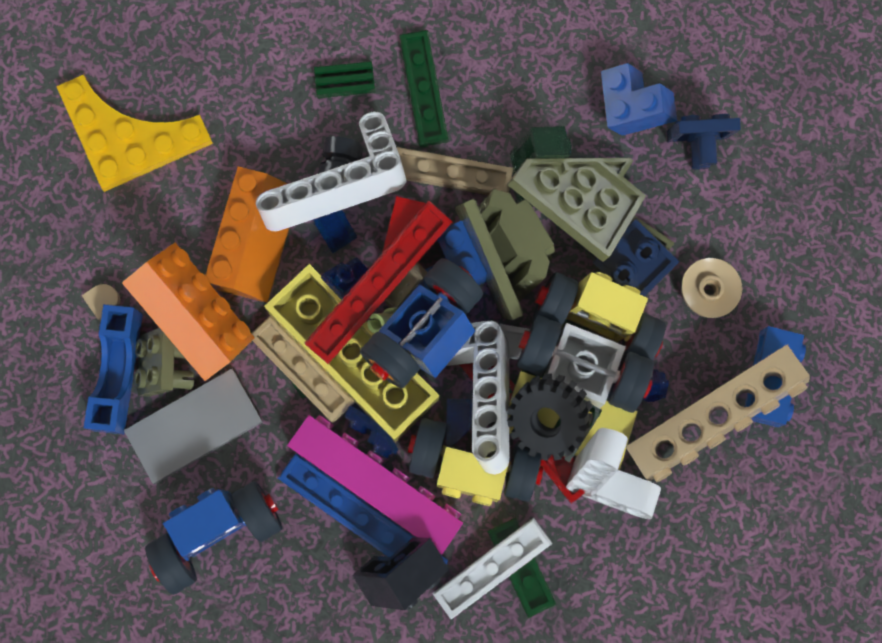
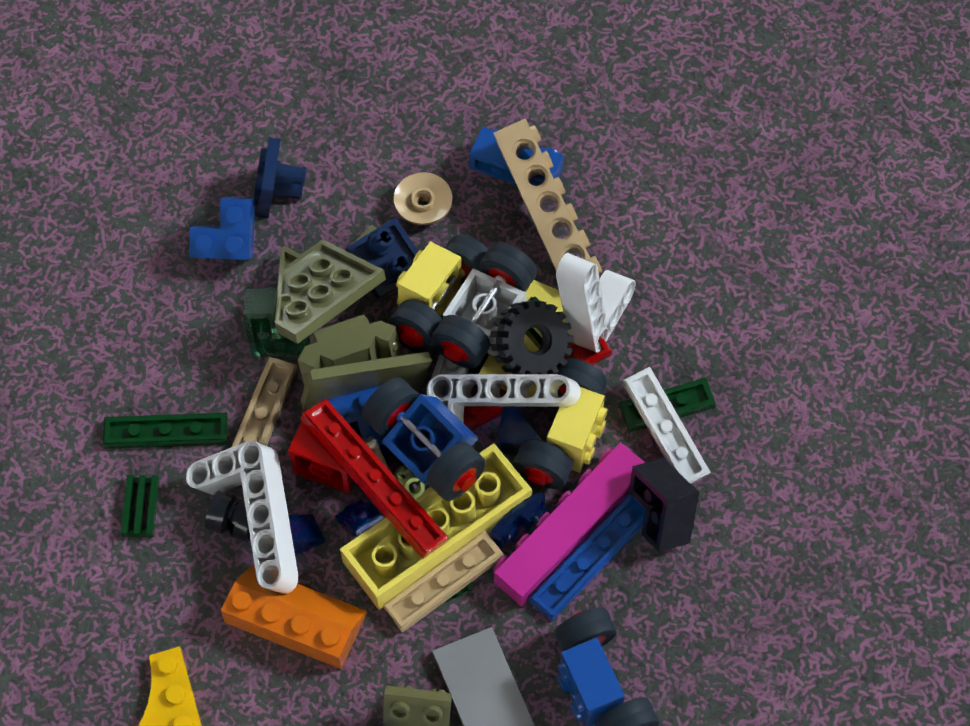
camera: 80 degrees left, 15 degrees down
(189, 310) = (370, 667): orange brick -> none

